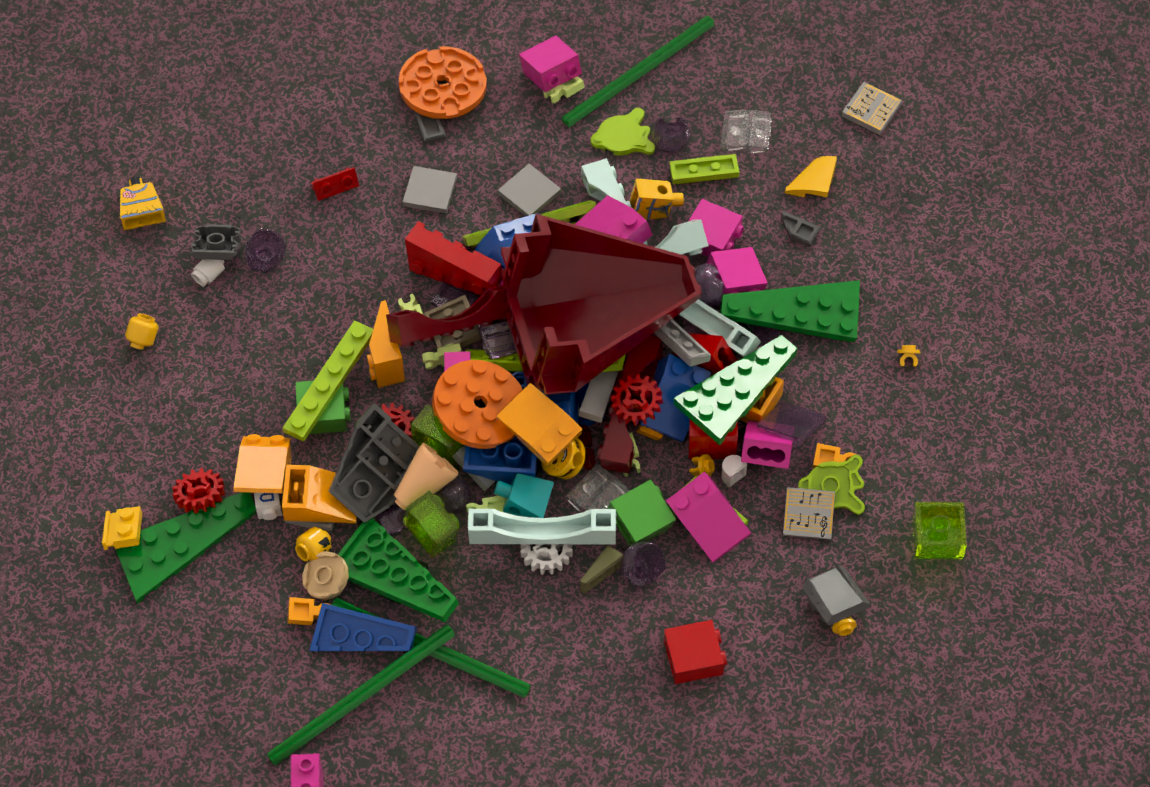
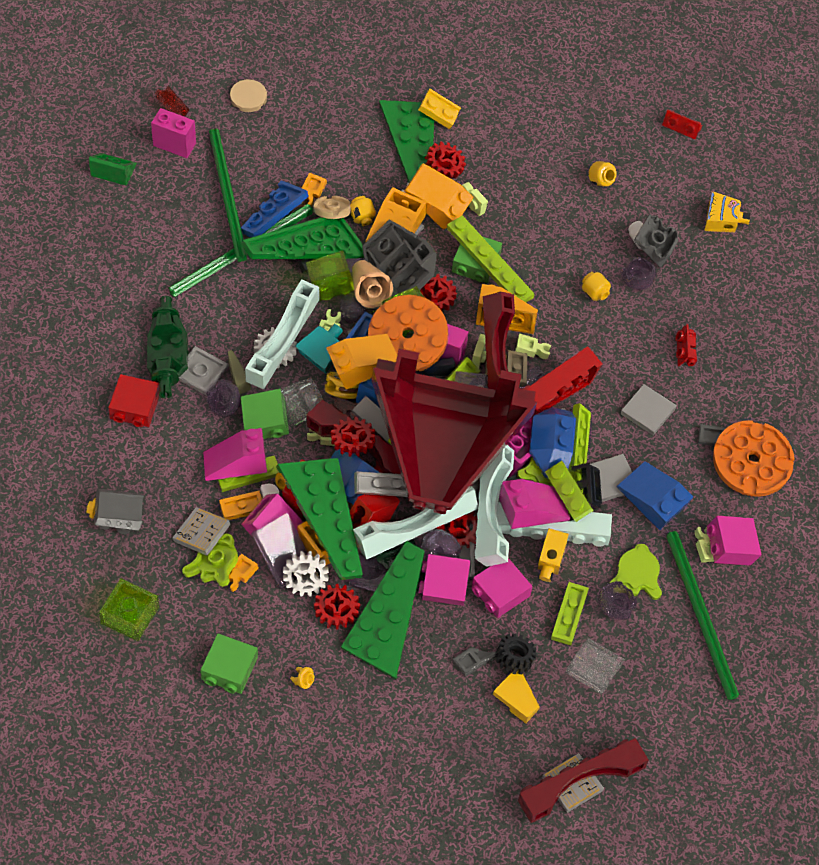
camera: 110 degrees right, 0 degrees up
(25, 278) = (681, 124): none -> red hinge
(194, 748) = (248, 95): none -> tan tile
(232, 449) = (478, 202): none -> yellowish green plate
(301, 283) = (596, 286): none -> yellow head
(533, 142) = (655, 494): none -> blue slope
(561, 196) = (590, 483): none -> black window
(583, 200) = (569, 491): none -> lime plate
(612, 651) = (166, 347): none -> dark green plate
(613, 612) = (203, 370): none -> light grey tile
(756, 492) = (239, 505): none -> light orange plate
(780, 200) = (513, 662): none -> black tyre
(804, 392) = (305, 565): none -> white gear
(817, 358) = (347, 604): none -> red gear
(907, 114) = (622, 761): none -> dark red arch
(937, 419) = (229, 664): none -> bright green piece

